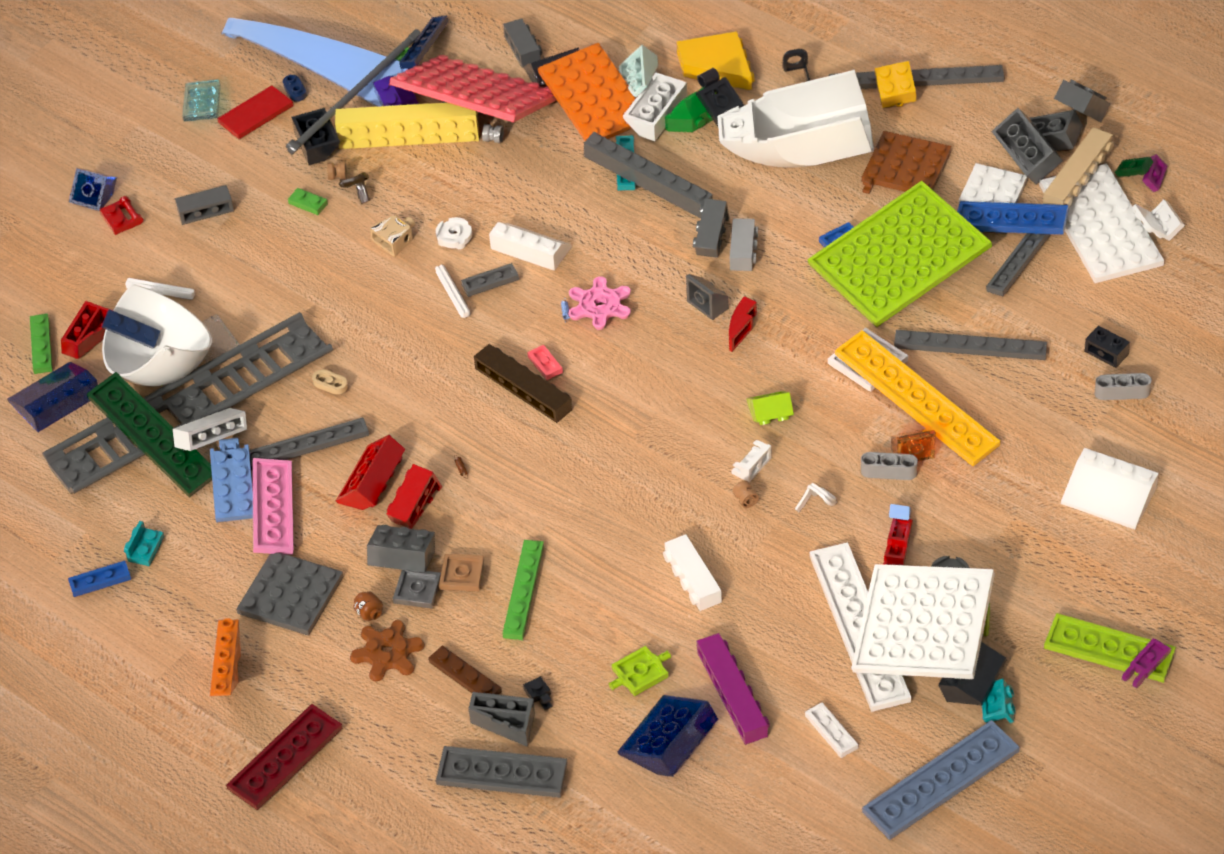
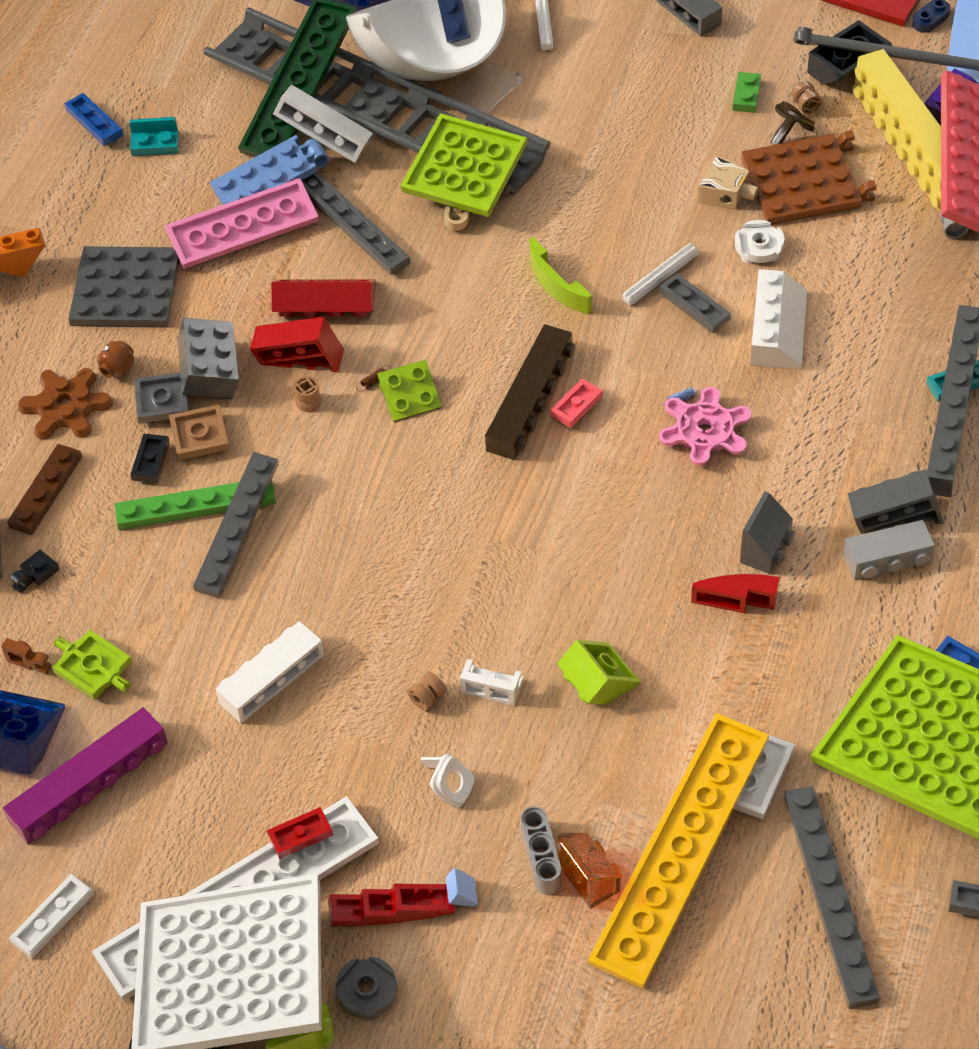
camera: 70 degrees right, 5 degrees up
(300, 360) = (464, 165): none -> lime plate
(408, 194) = (805, 178): none -> dark orange plate
(428, 347) = (571, 295): none -> lime slope
(460, 503) = (307, 394): none -> medium nougat wheel
(471, 605) = (150, 458): none -> black plate
(486, 447) = (409, 390): none -> lime hinge
(559, 565) = (235, 525): none -> dark grey plate
(614, 708) = (22, 655): none -> dark orange plate
(831, 576) = (299, 832): none -> red plate

